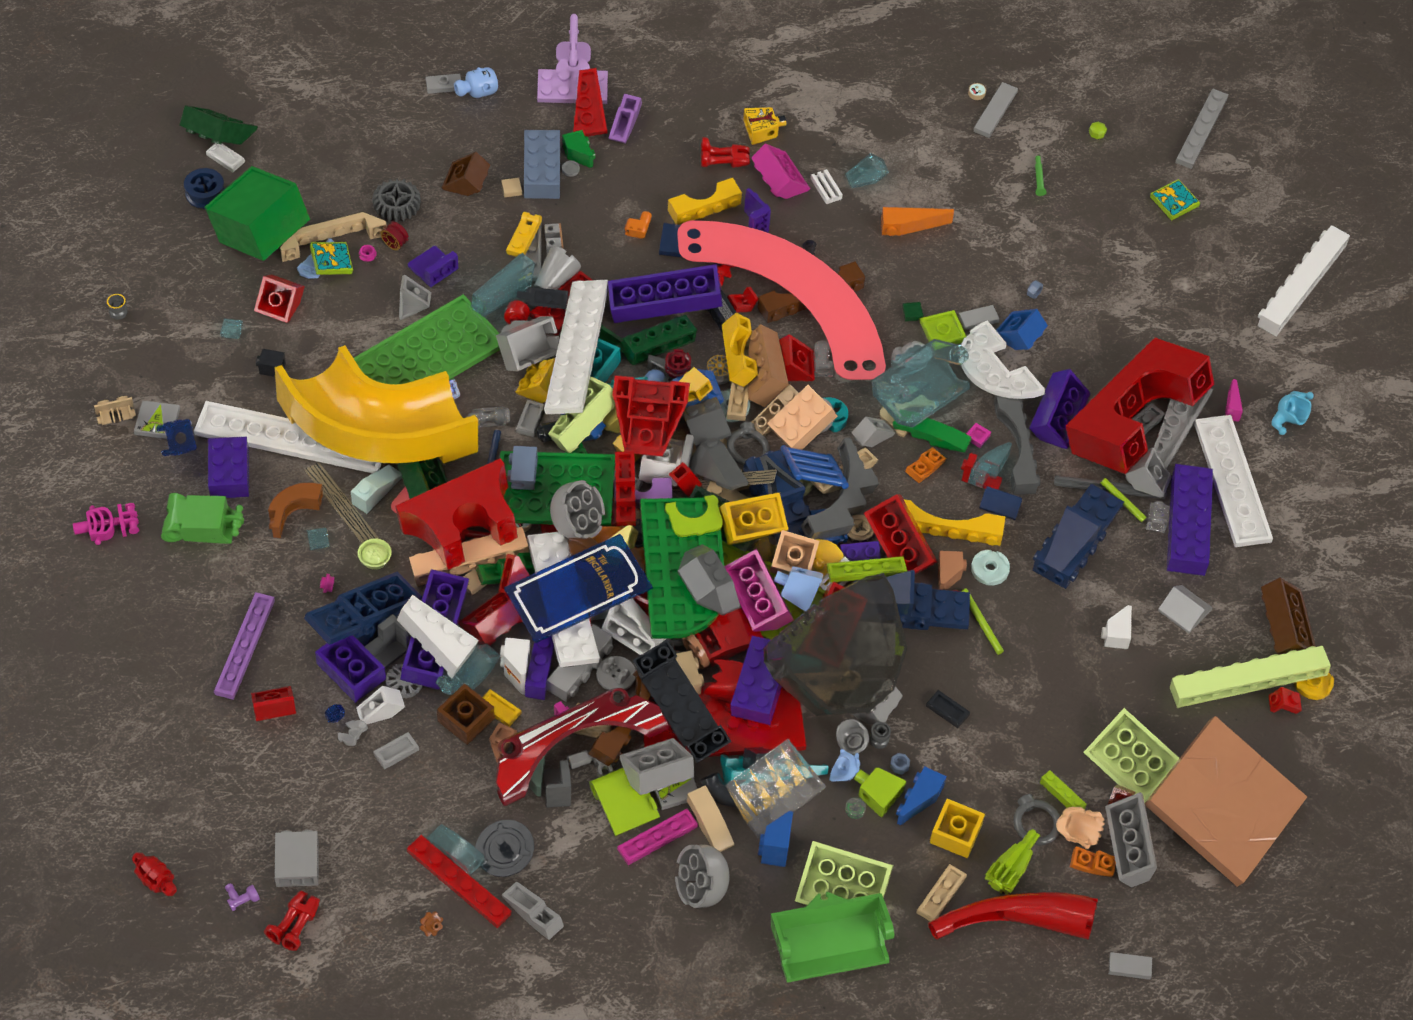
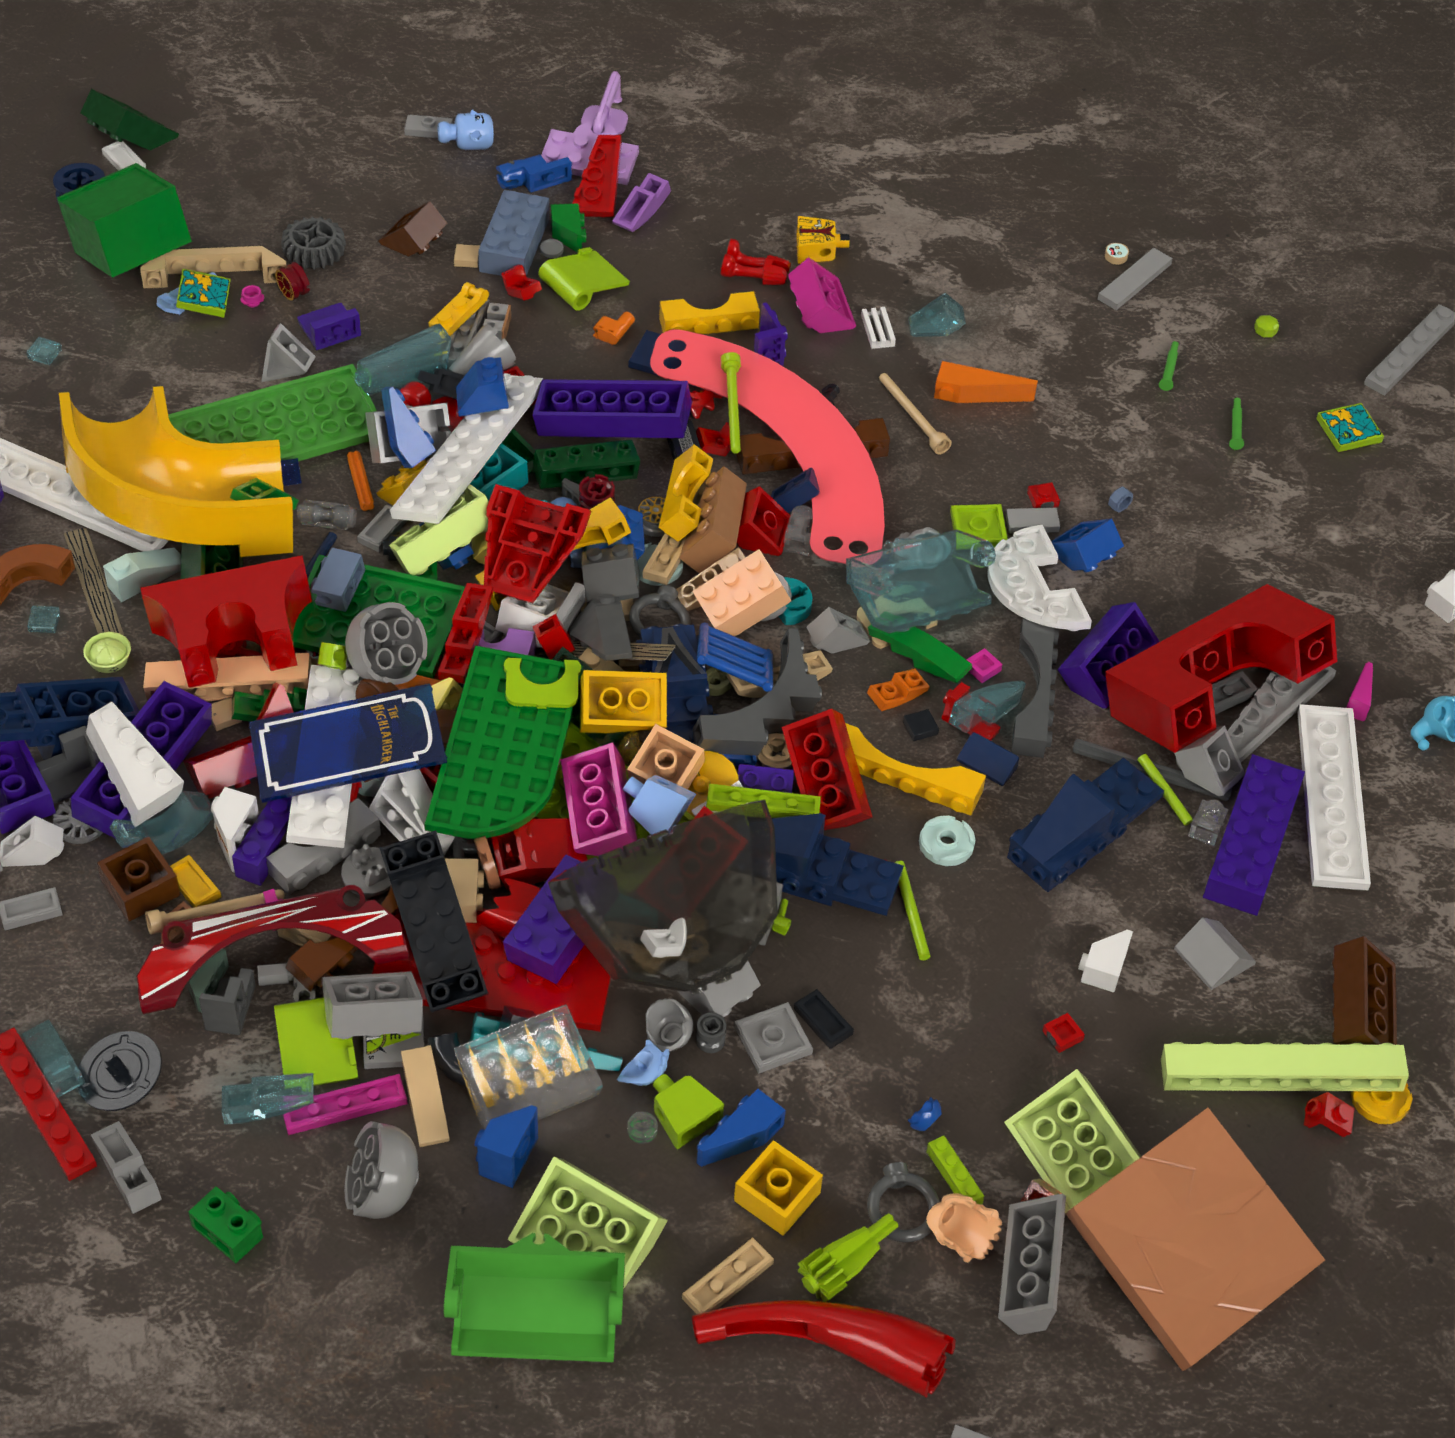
camera: 15 degrees right, 5 degrees down
(269, 360) = (80, 394): black brick -> none
(278, 298) = (116, 325): red slope -> none
(327, 583) = (29, 673): dark pink plate -> none
(446, 414) = (259, 490): none -> green wing
(490, 741) = (158, 920): none -> tan piece
(501, 385) = (360, 480): none -> orange axle
(530, 345) = (405, 435): none -> slope
(536, 108) = (534, 173): none -> blue plate
(542, 525) = (333, 656): none -> lime leg
(560, 205) = (518, 284): none -> red bracket
(571, 298) = (482, 388): none -> blue slope
(602, 189) = (580, 276): none -> lime door
(609, 844) = (266, 1097): none -> clear light blue slope
(613, 932) = (226, 1224): none -> green brick
(708, 580) = (527, 769): dark grey wedge -> none
(738, 242) = (731, 364): none -> lime piece
(813, 330) = (797, 490): none -> dark blue slope
(837, 680) = (666, 941): none -> white plate
(897, 270) = (938, 441): none -> tan piece
(900, 763) = (727, 1079): sand blue tile -> none
(912, 311) = (943, 495): dark green tile -> none
(919, 729) = (773, 1037): none -> light grey tile
(948, 487) = (920, 725): none -> black tile
(950, 568) = (887, 829): nougat slope -> none
(980, 297) = (1043, 496): none -> red plate
(1034, 760) = (926, 1115): none -> blue plate
(1094, 863) = (964, 1282): orange slope -> none
(1097, 213) = (1236, 442): none -> bright green piece
(1104, 684) = (1063, 1032): none -> red plate

